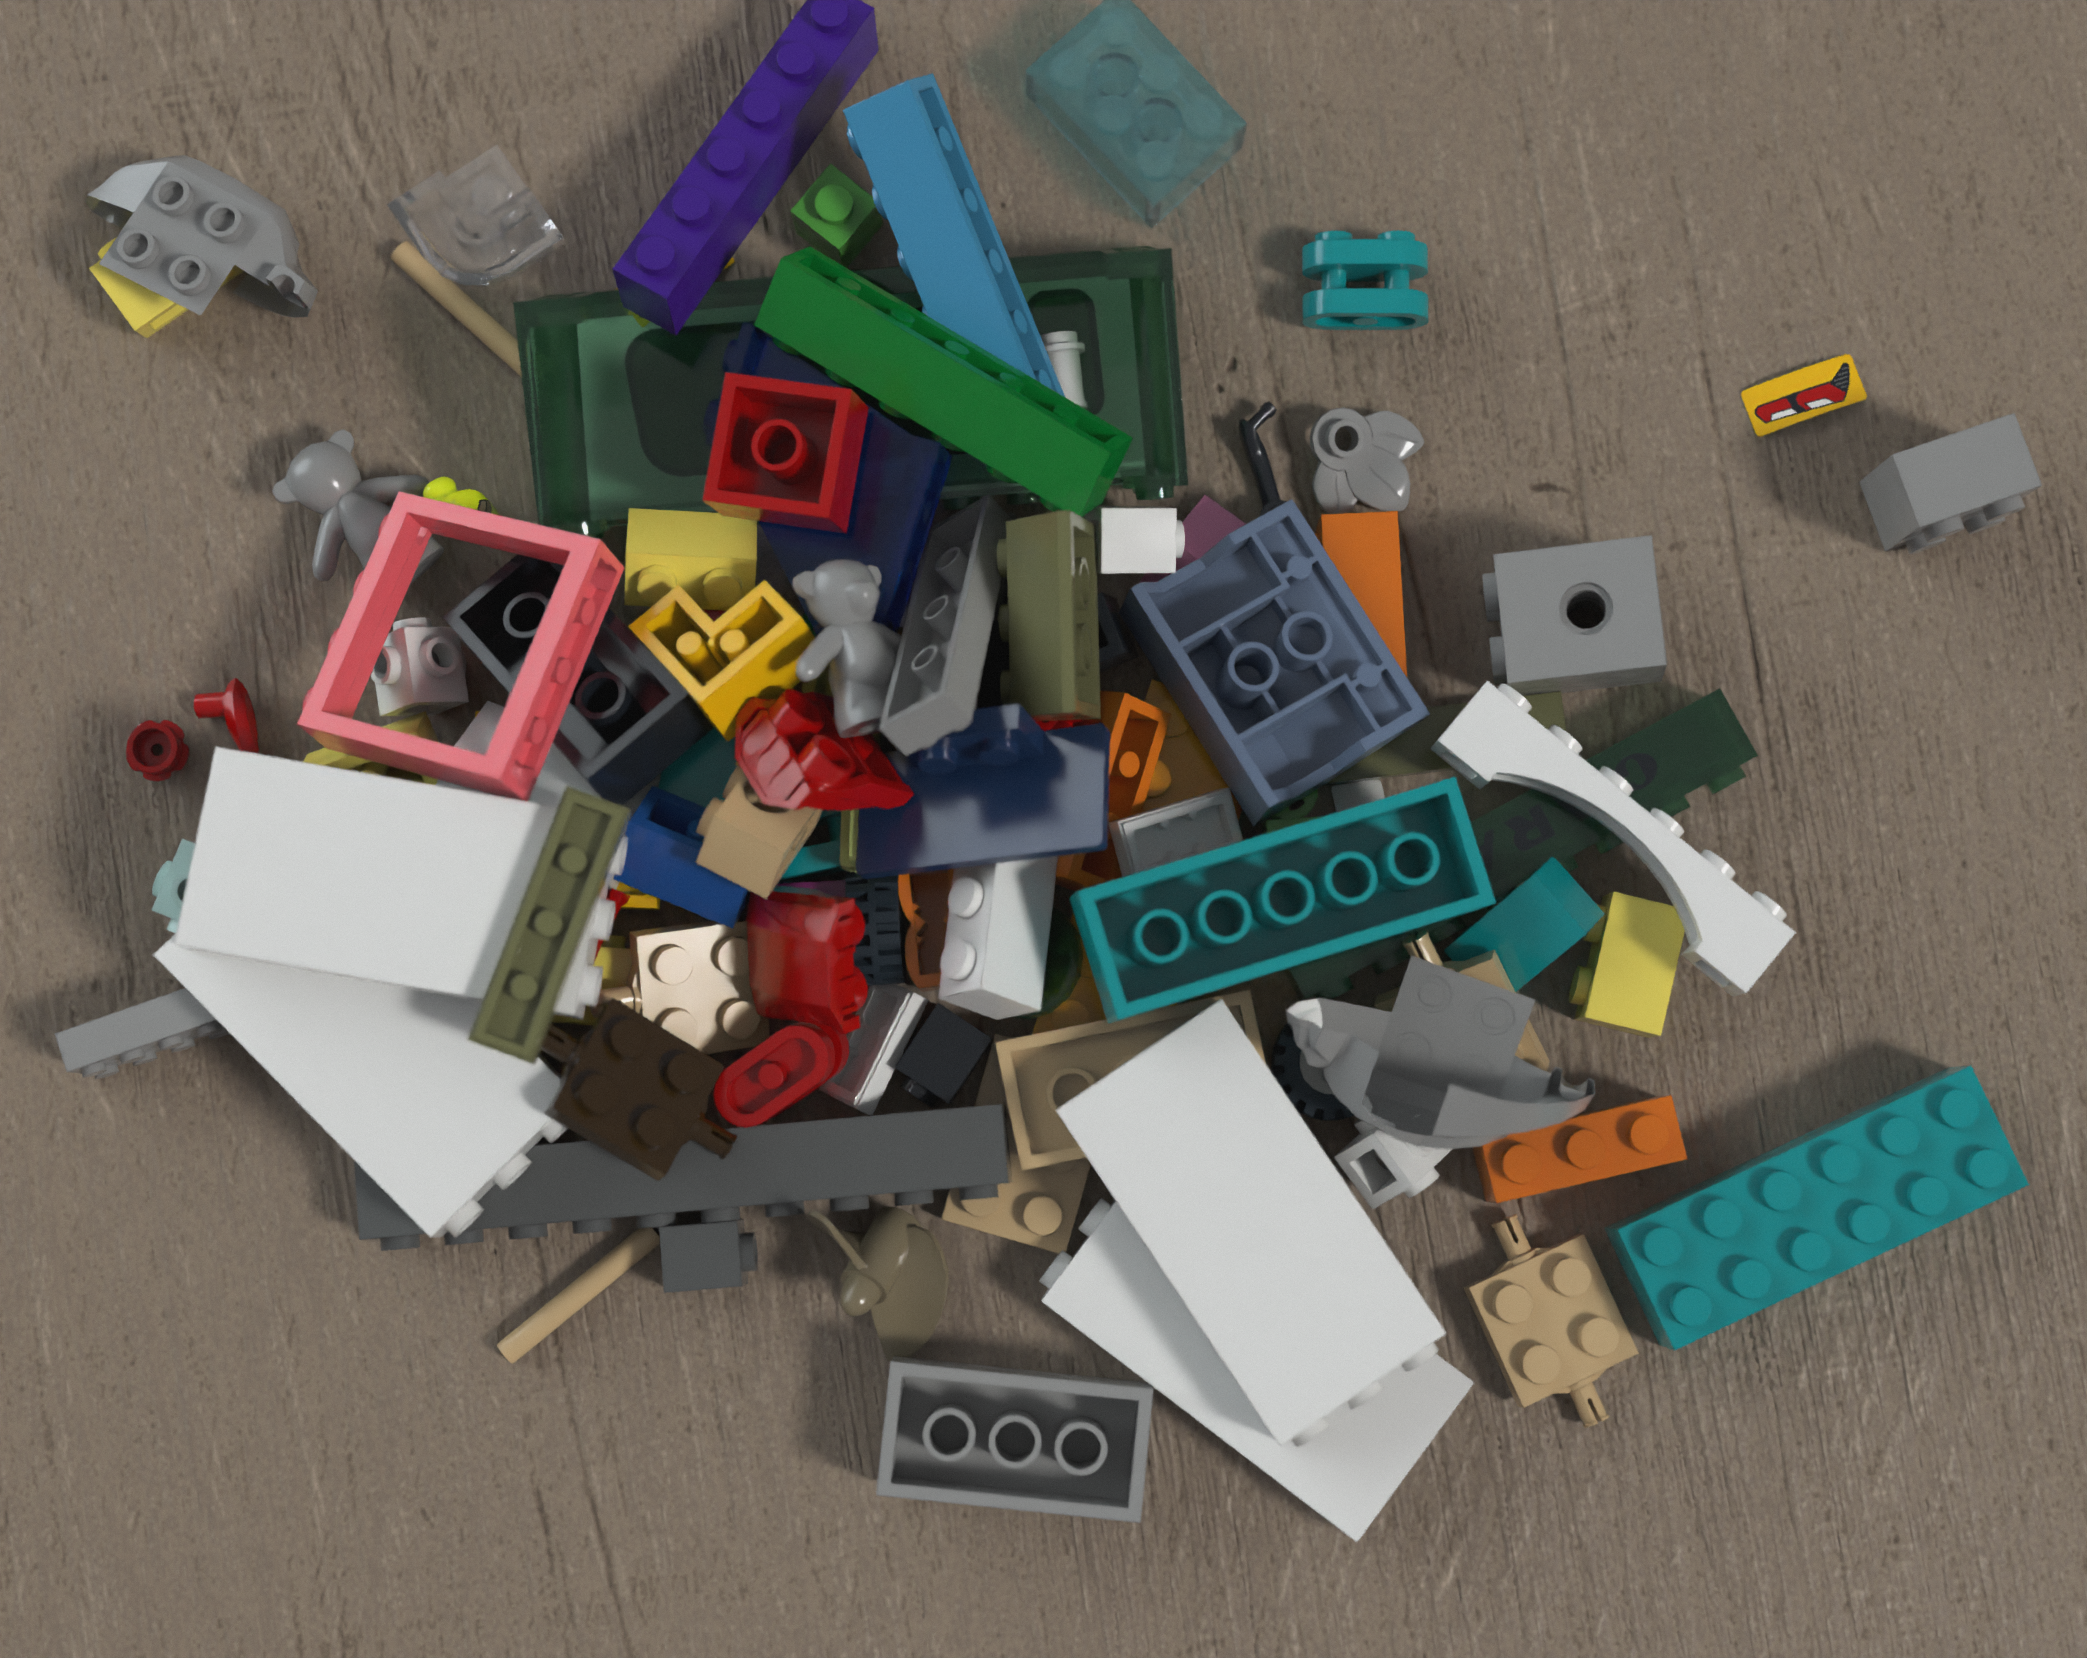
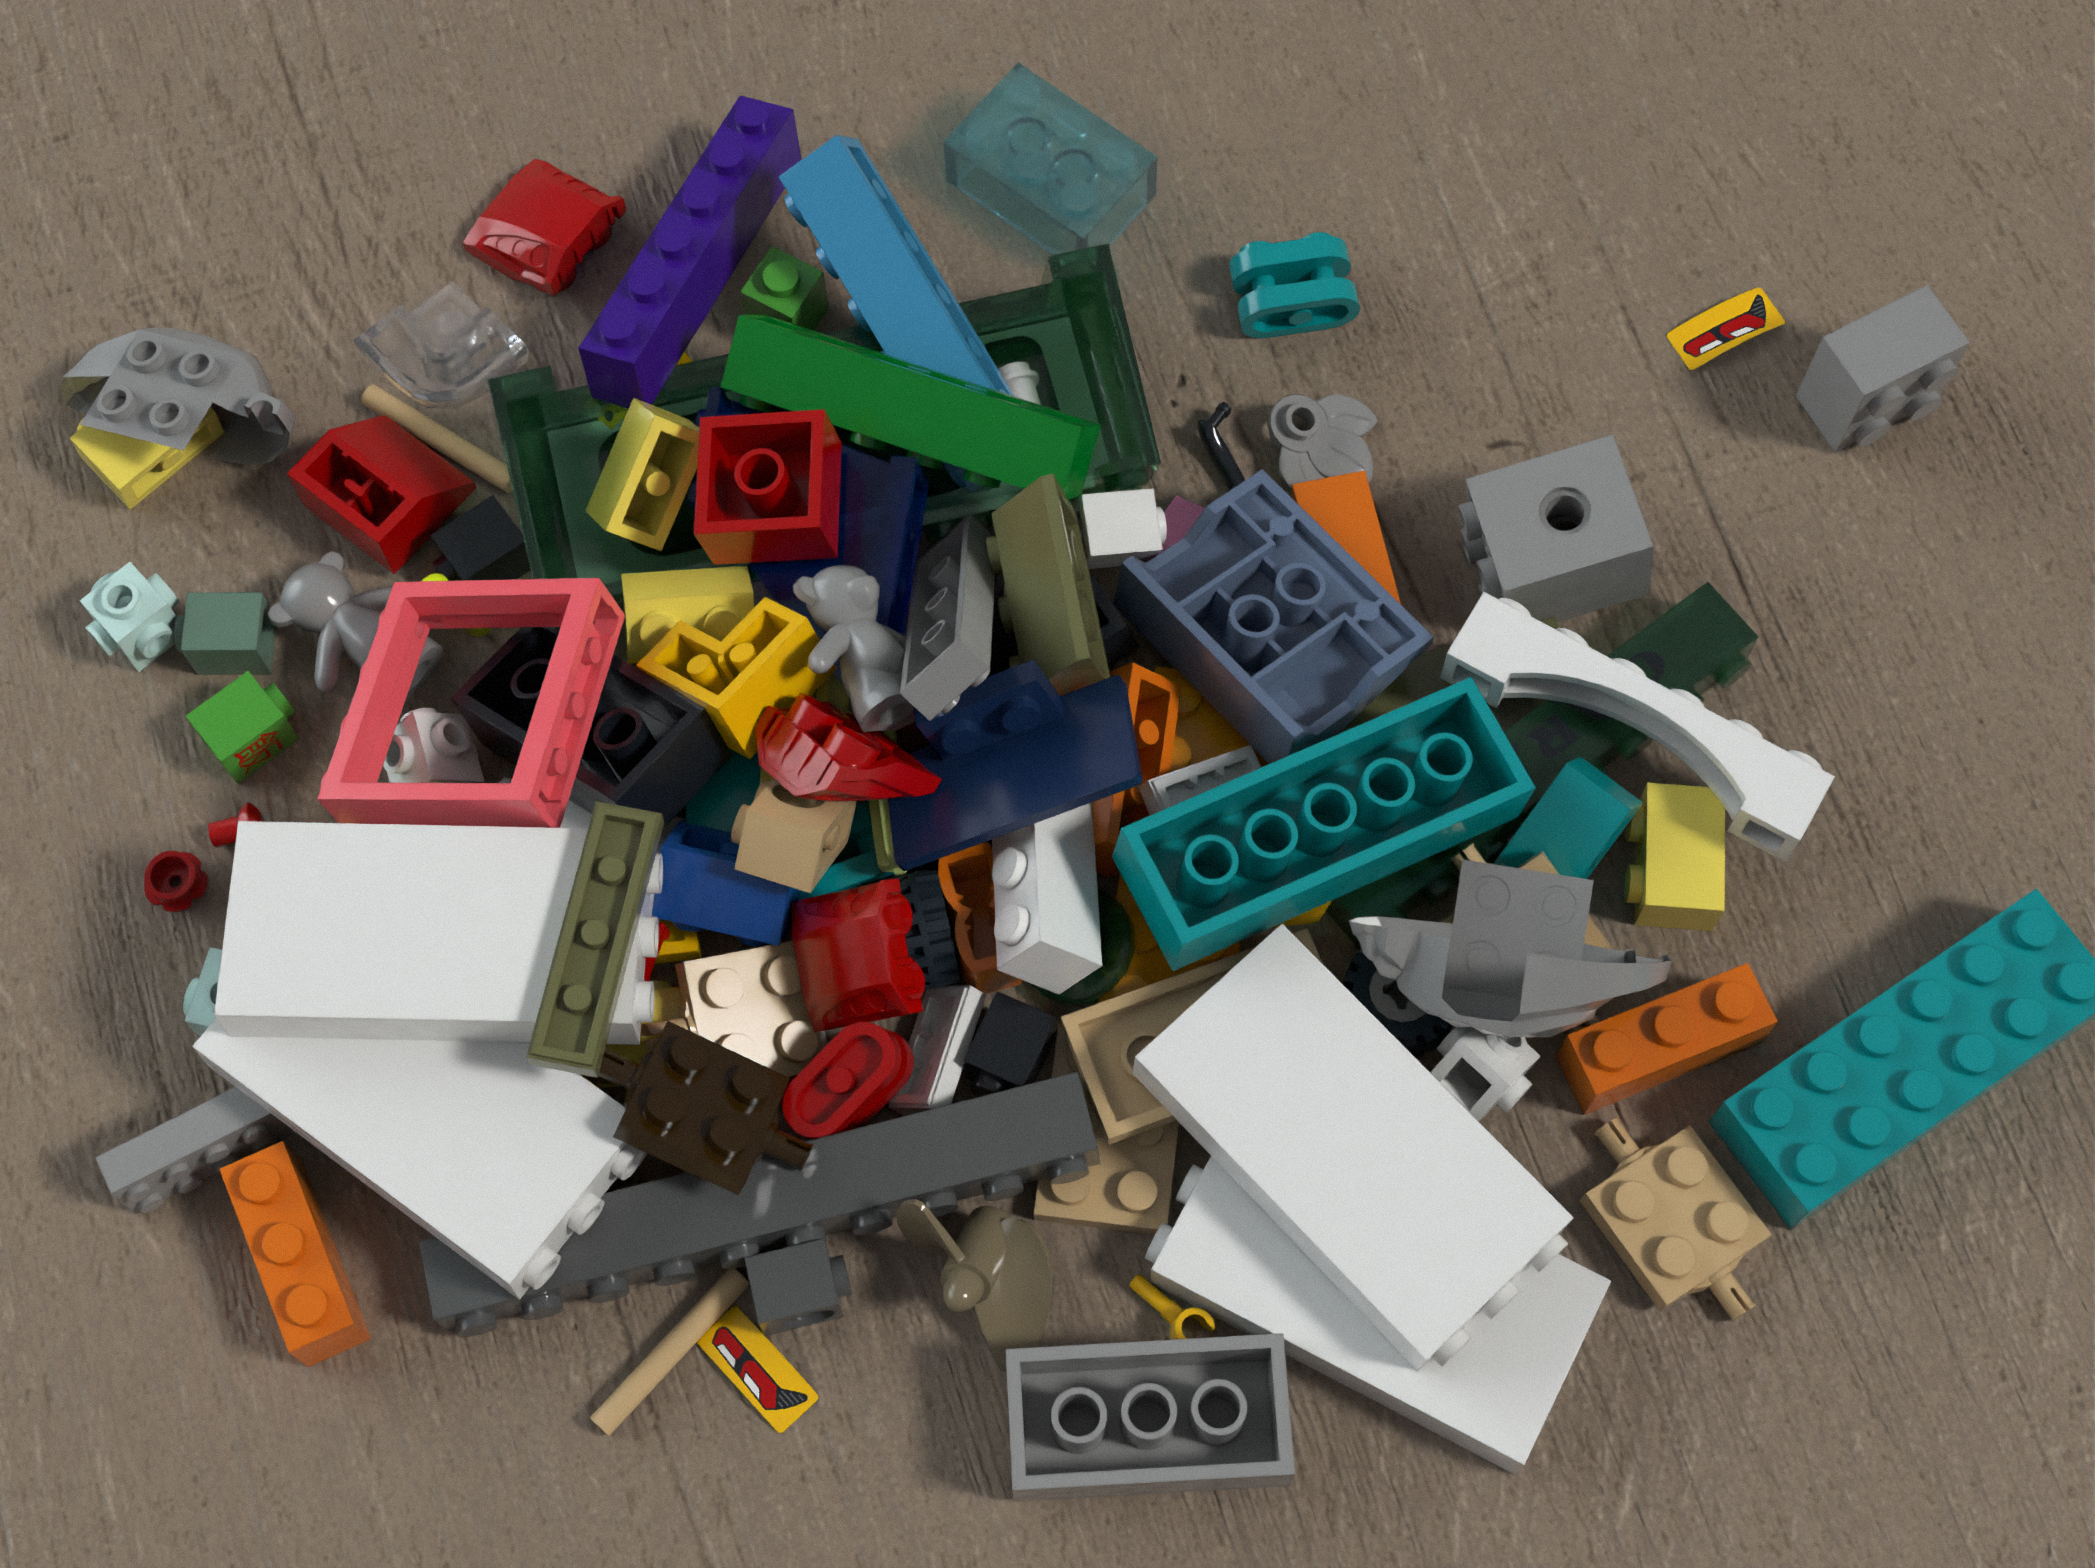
camera: 10 degrees left, 15 degrees down
(156, 467) = (132, 615): none -> light aqua brick
(229, 498) = (226, 633): none -> sand green brick
(236, 1148) = (295, 1254): none -> orange brick
(238, 600) = (245, 725): none -> bright green brick
(401, 362) = (379, 488): none -> red slope
(490, 449) = (481, 545): none -> black brick
(599, 87) = (543, 227): none -> red slope
(660, 1321) = (758, 1369): none -> yellow sticker
(667, 405) = (646, 475): none -> light yellow brick
(1056, 1330) = (1170, 1309): none -> yellow hand

